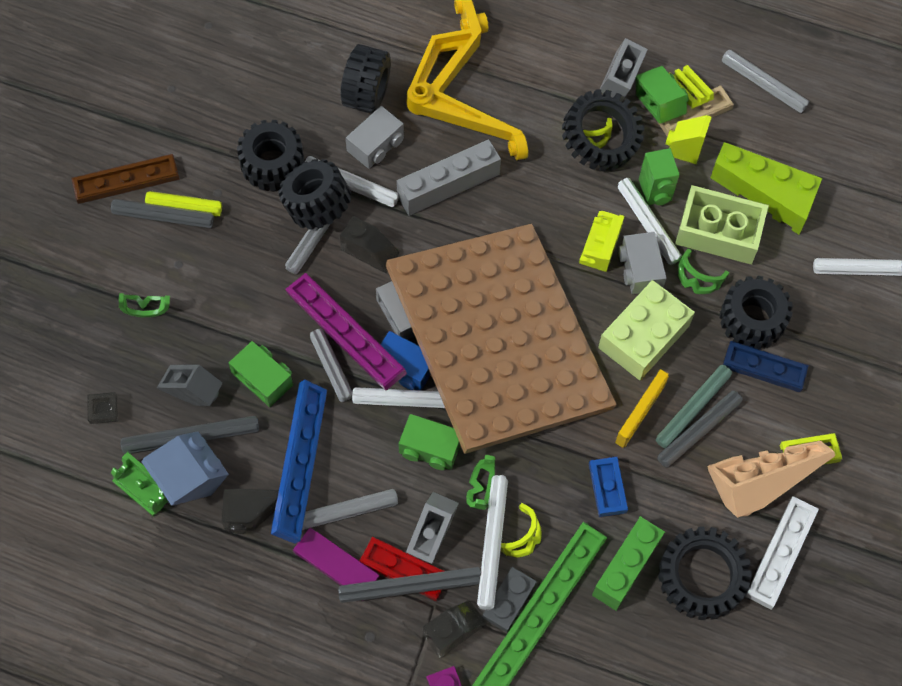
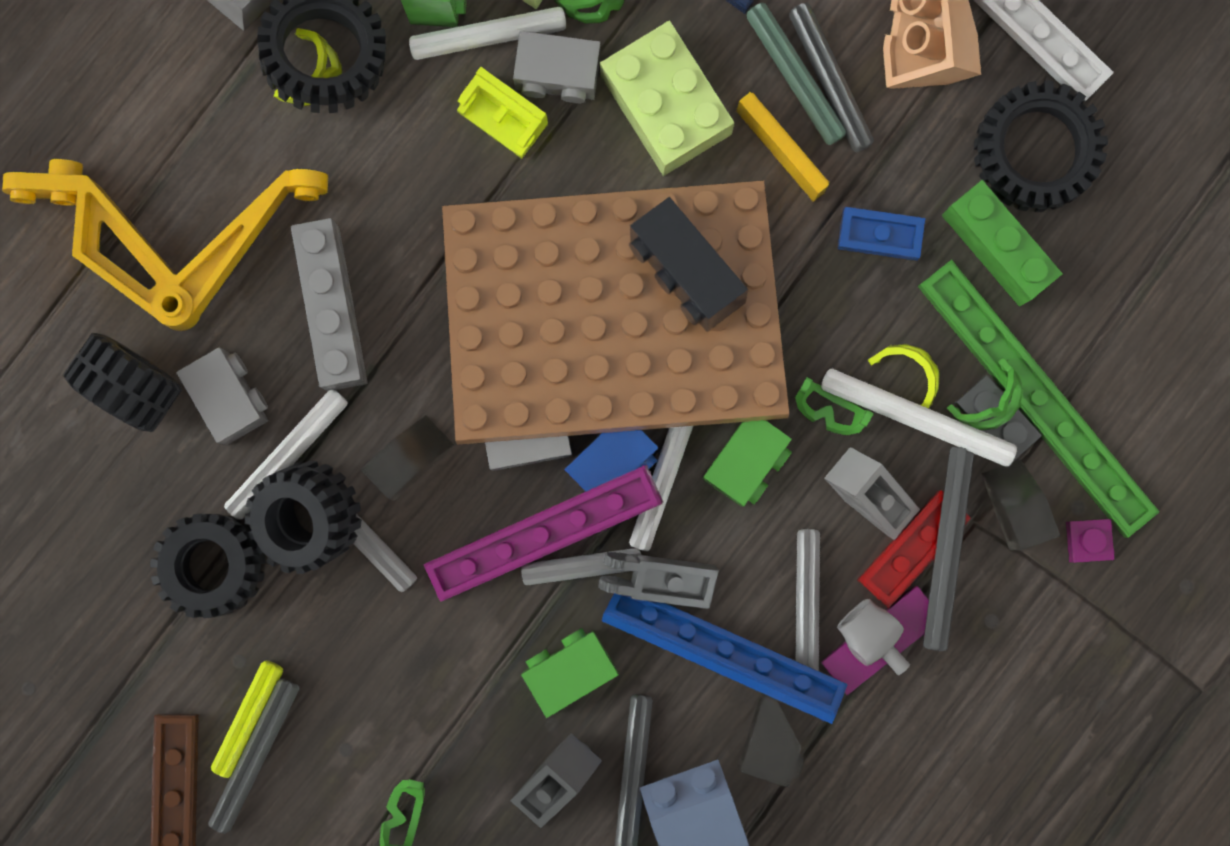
camera: 70 degrees left, 20 degrees up
(336, 410) = (661, 580): none -> dark grey hinge
(337, 549) = (872, 635): none -> light grey piece
(539, 594) = (1003, 412): none -> bright green helmet
(541, 361) = (687, 265): none -> black brick

